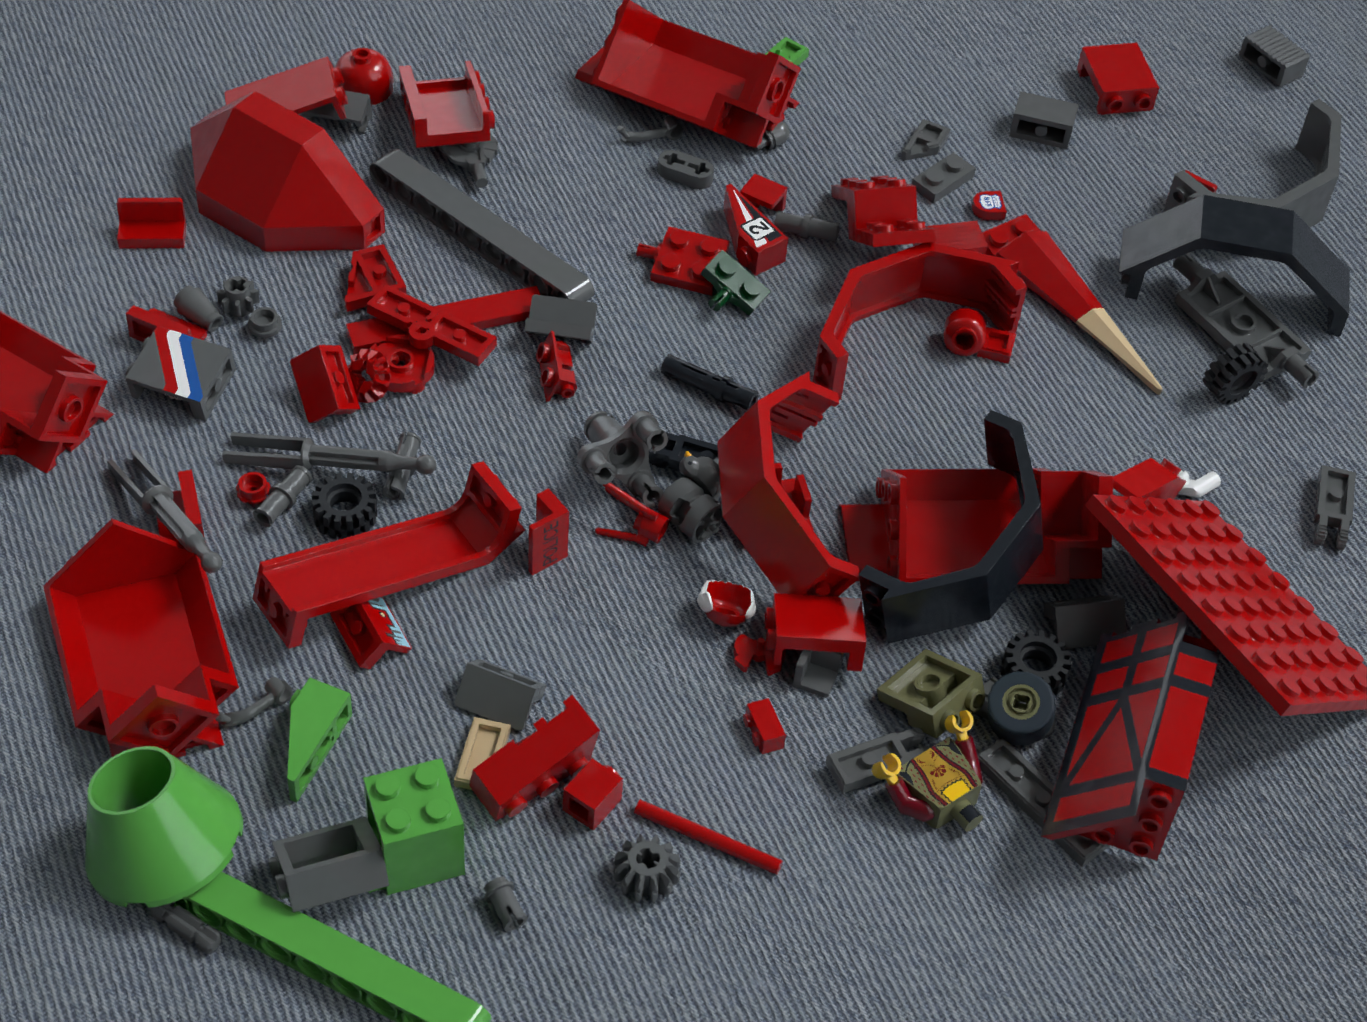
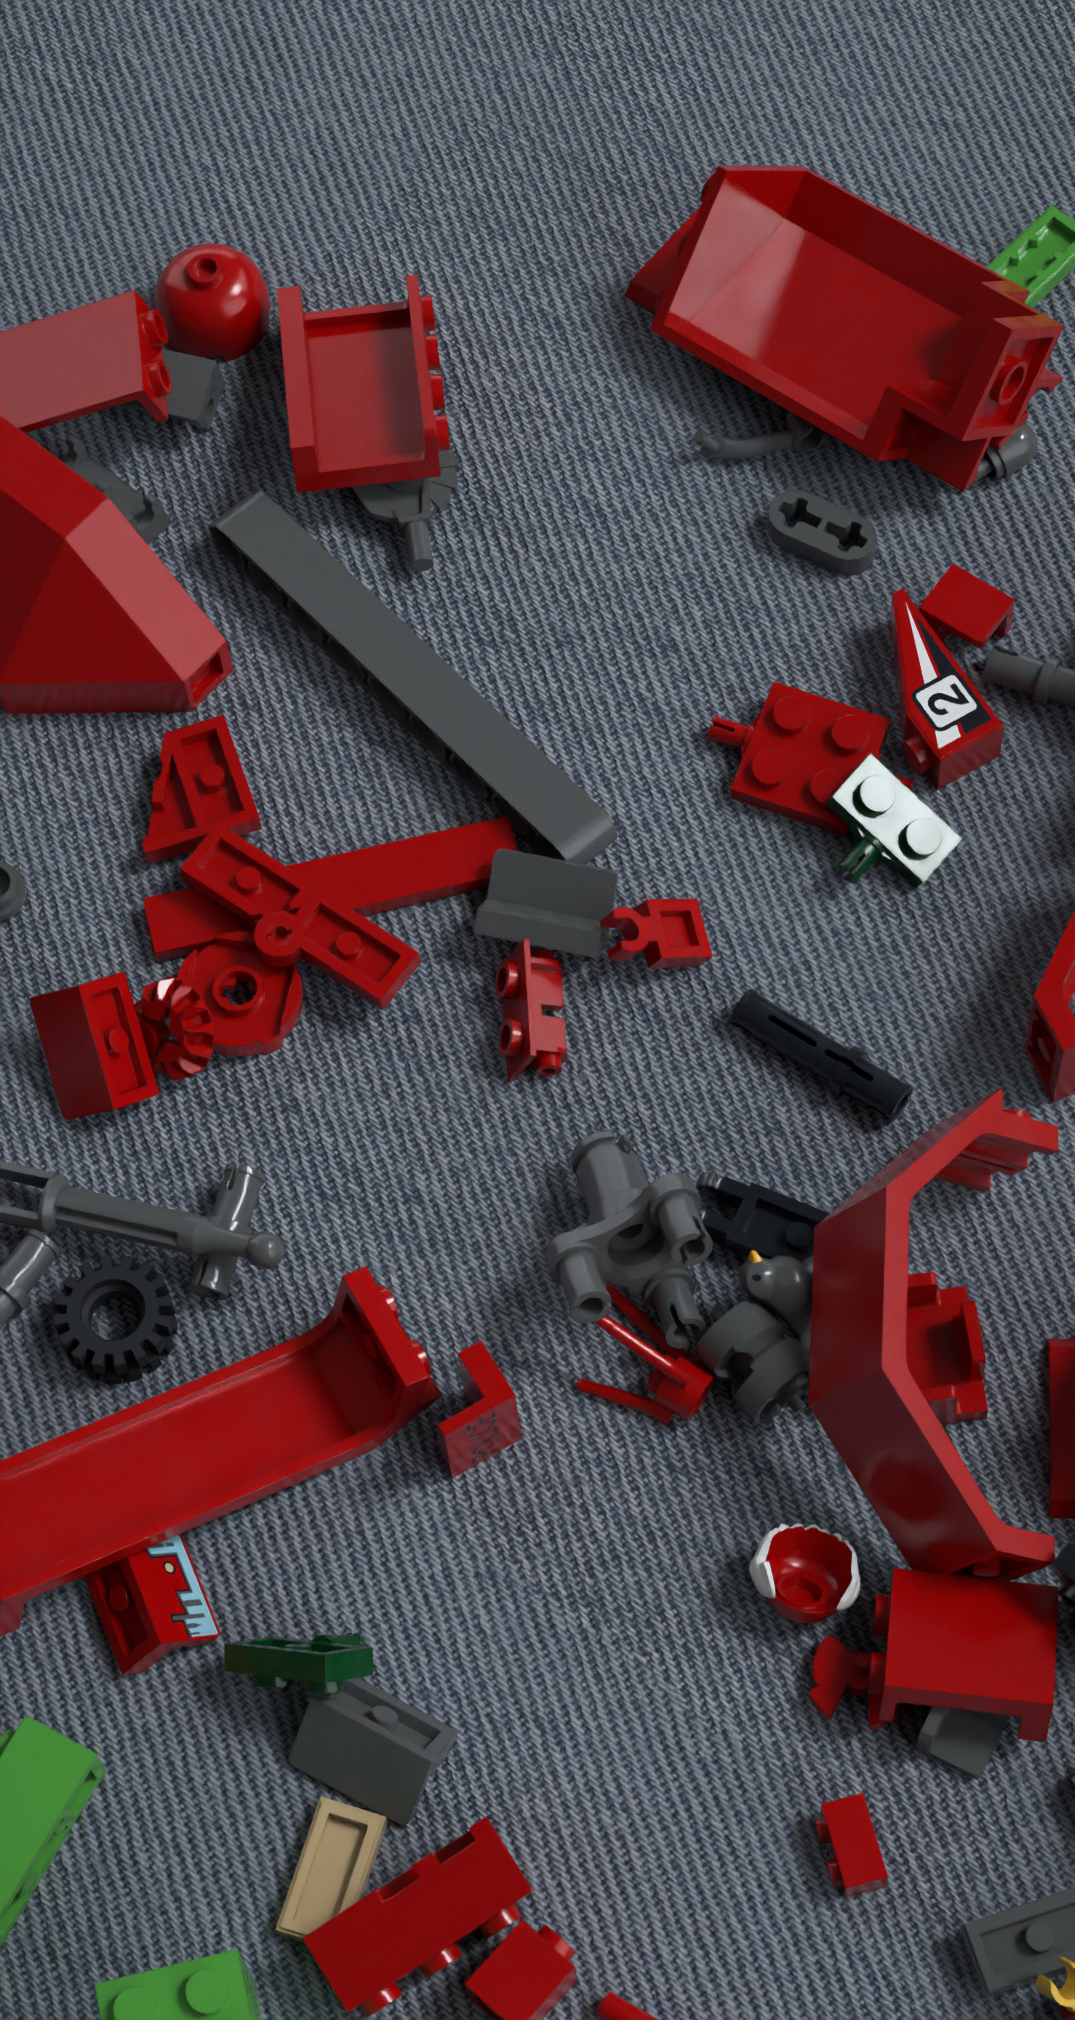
camera: 15 degrees right, 15 degrees up
(468, 645) = (318, 1662): none -> dark green plate
(623, 329) = (665, 929): none -> red plate

